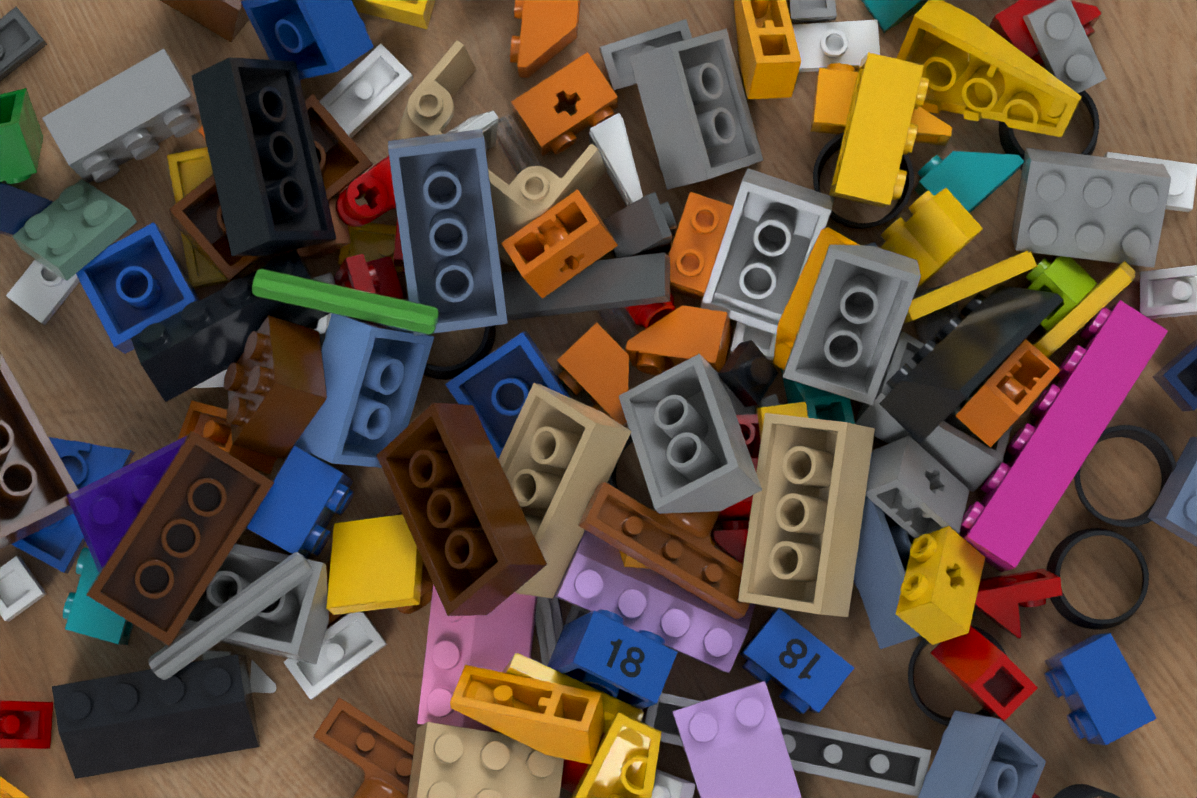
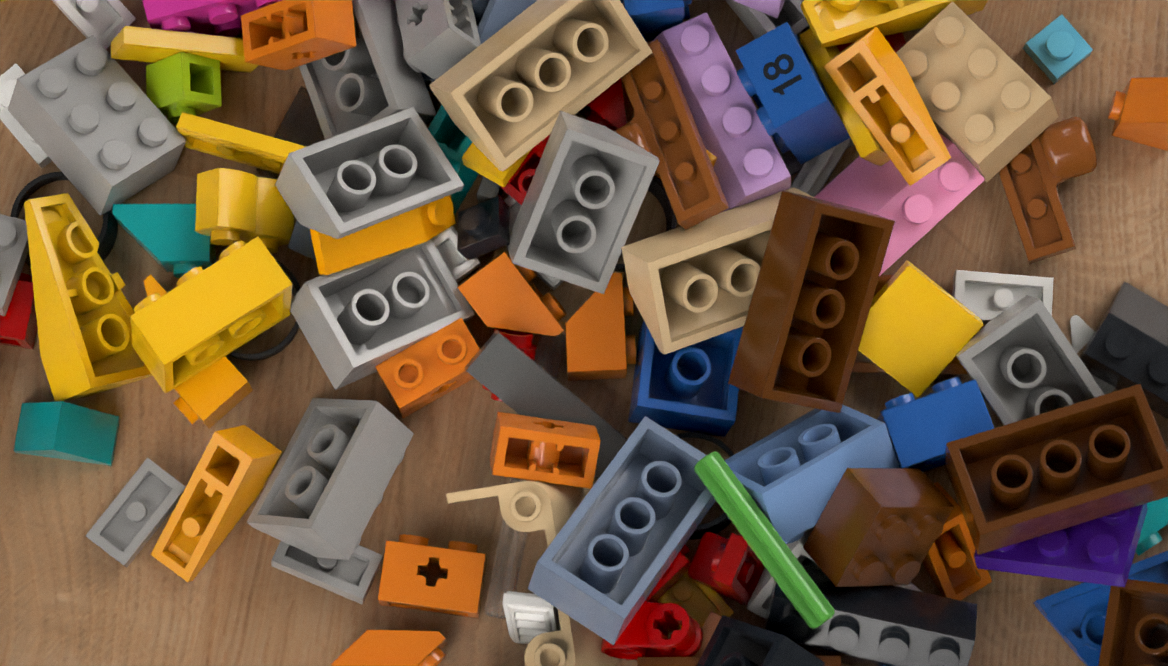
camera: 145 degrees left, 5 degrees down
(230, 616) = (1063, 376): light grey axle -> none
(616, 153) = (427, 504): white slope -> none
(642, 227) = (464, 414): dark grey slope -> none
(835, 43) = (165, 435): white plate -> none
(964, 357) = (304, 79): black slope -> none

